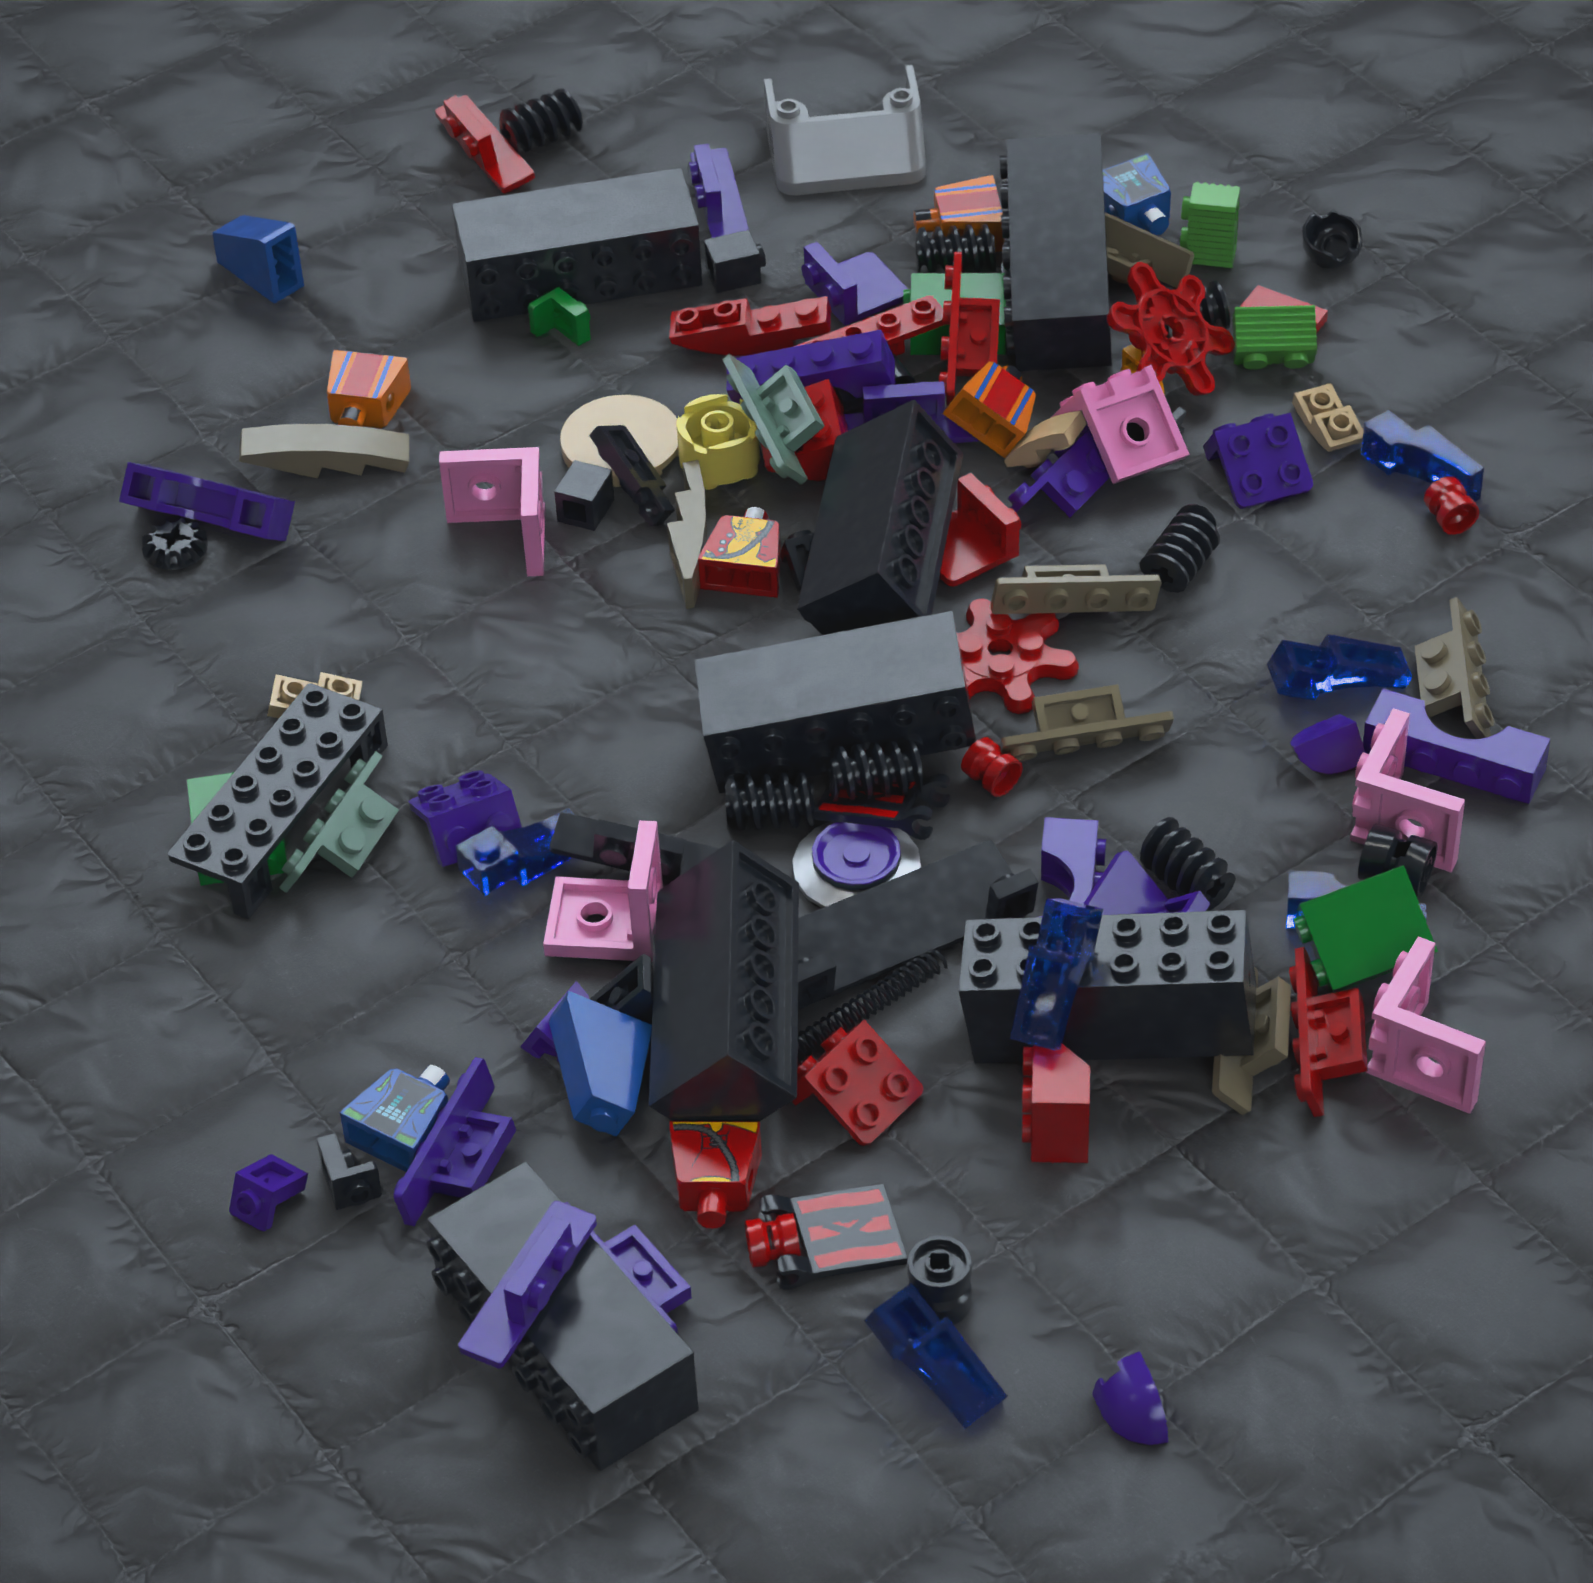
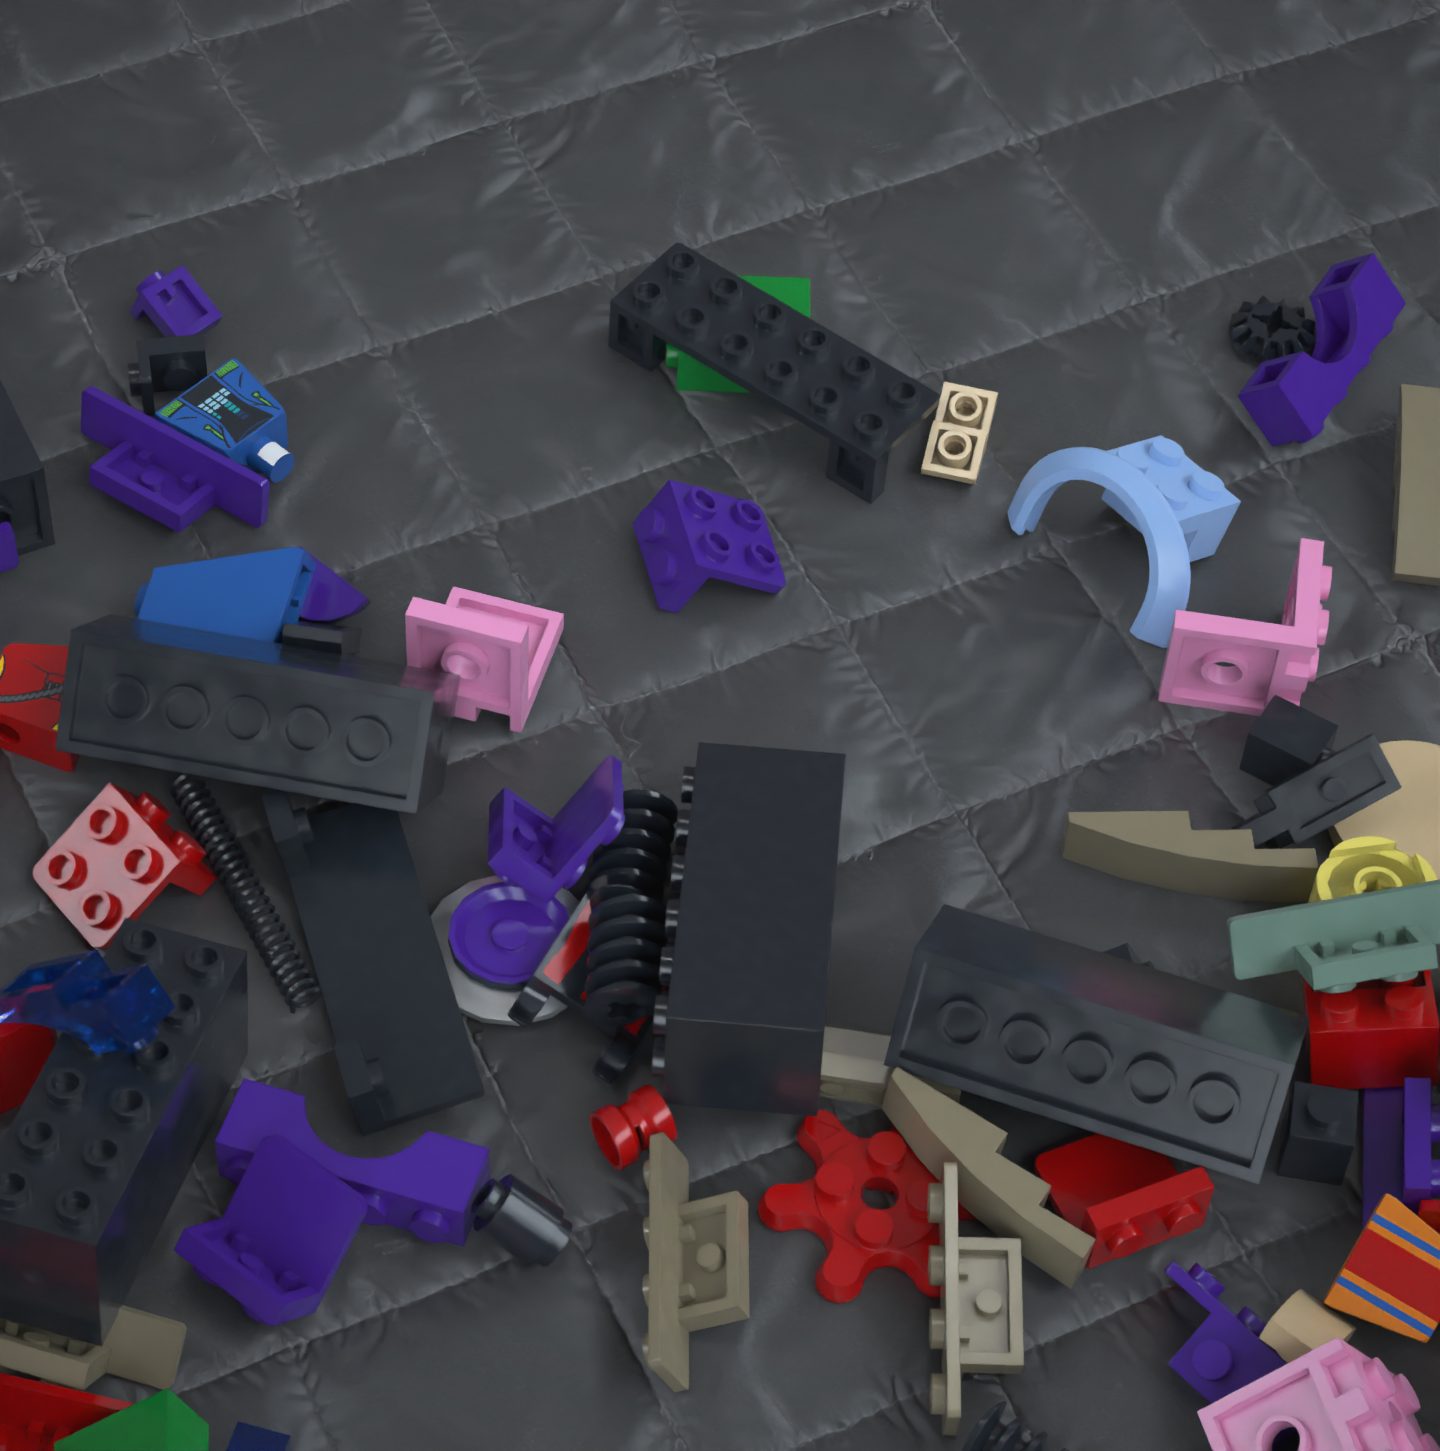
camera: 95 degrees right, 5 degrees up
(351, 829) = (713, 438): sand green bracket -> none
(382, 561) = (1157, 492): none -> light blue piece
(501, 856) = (623, 592): clear blue slope -> none
(614, 845) = (574, 699): black bracket -> none
(742, 555) = (1140, 904): red torso -> none
(774, 814) = (552, 853): none -> dark purple bracket
(973, 589) = (988, 1184): none -> dark tan slope
(1089, 791) = (521, 1220): none -> black brick
(1185, 863) = (367, 1320): black piece -> none

